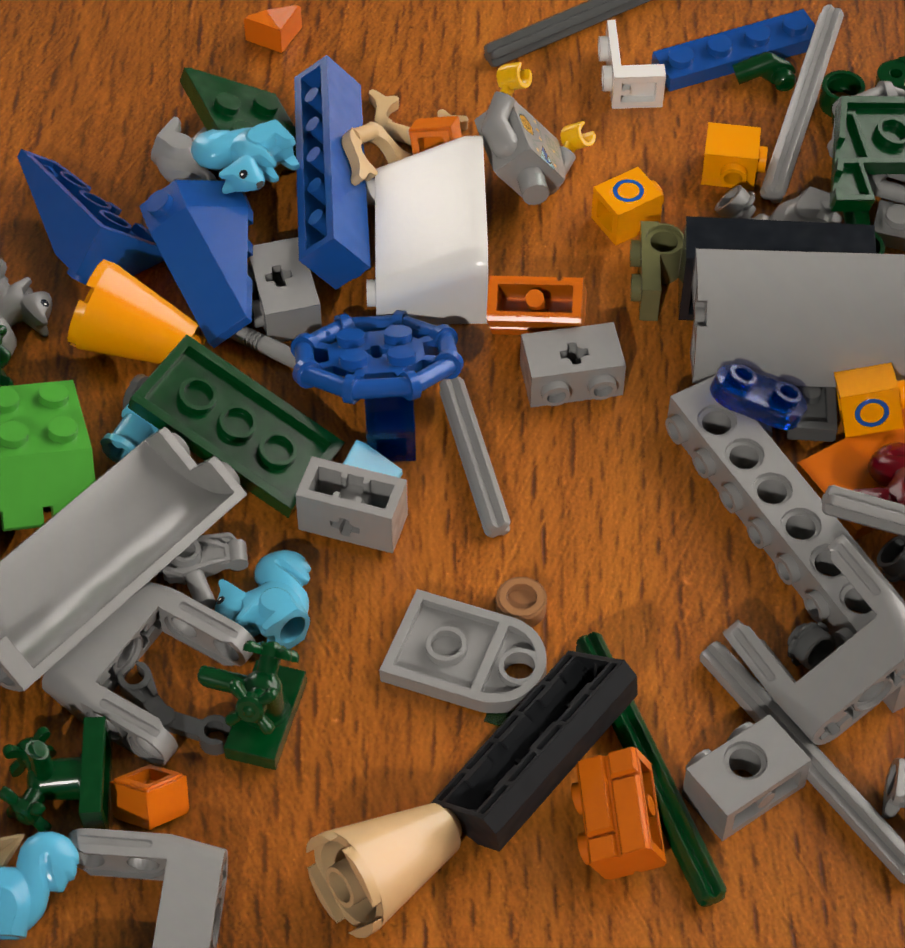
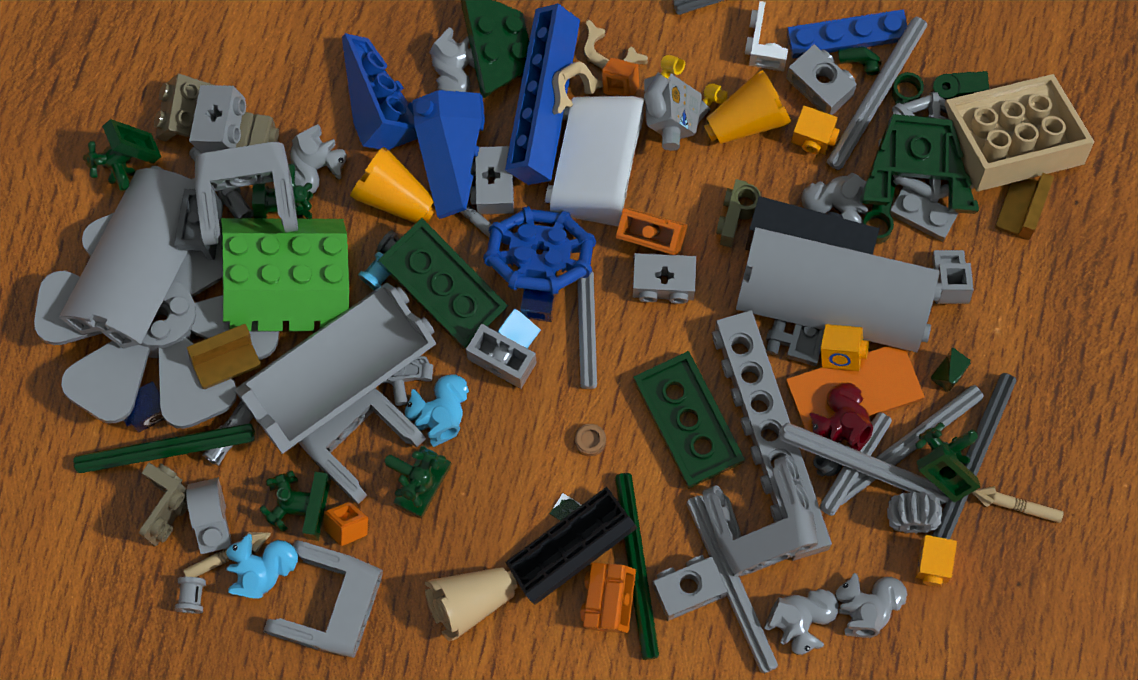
camera: 15 degrees right, 20 degrees up
(146, 697) = (363, 473): dark grey piece -> none
(246, 154) = (491, 74): medium azure animal -> none
(463, 654) = (546, 467): light grey tile -> none
(624, 203) = (734, 157): light orange brick -> none
(636, 135) = (747, 111): none -> light orange cone
(660, 570) = (678, 438): none -> dark green plate
(719, 95) = (825, 96): none -> light grey brick
(736, 204) = (806, 171): light grey plate -> none
(758, 396) = (771, 335): clear blue plate -> none
(810, 644) = (755, 509): dark grey plate -> none

